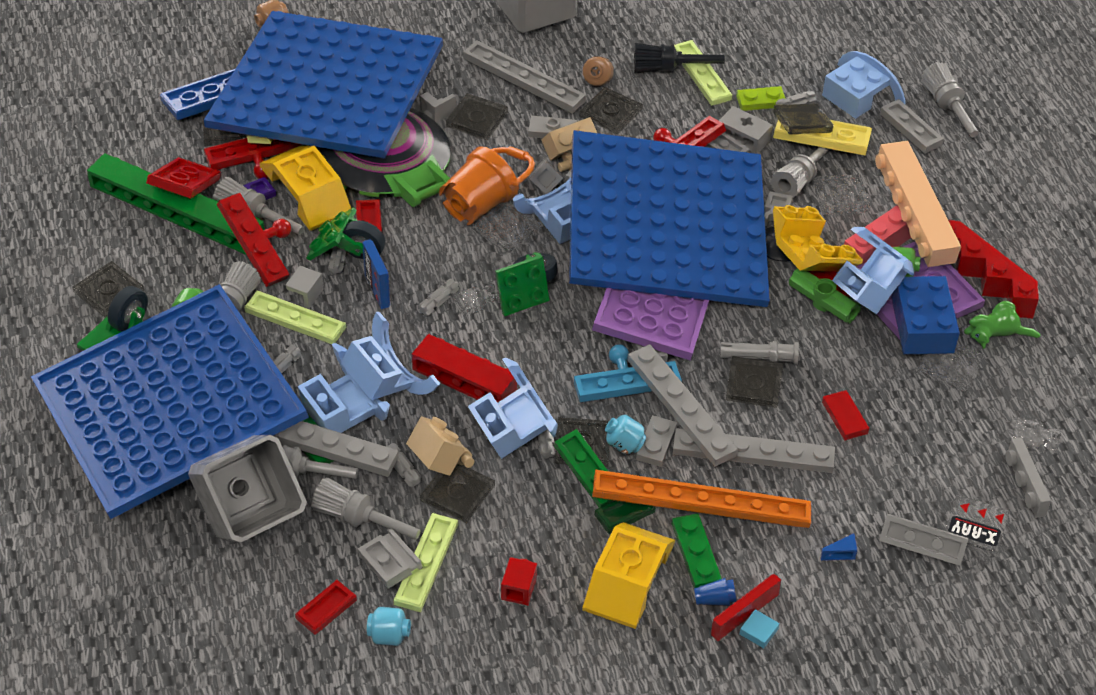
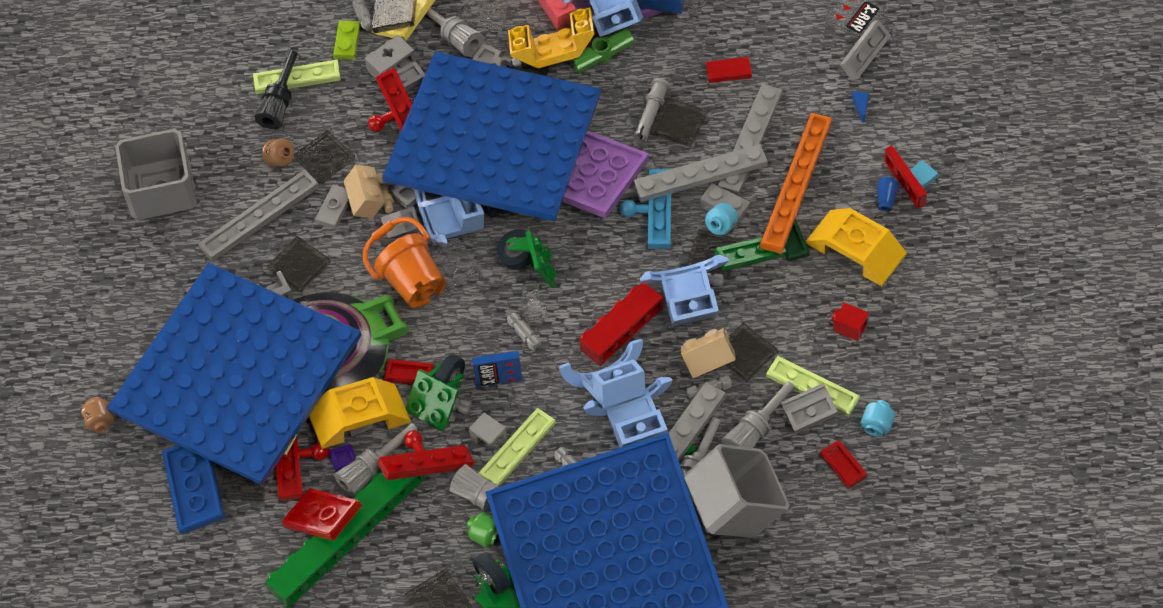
camera: 70 degrees left, 10 degrees up
(695, 550) = (841, 198): green plate -> none

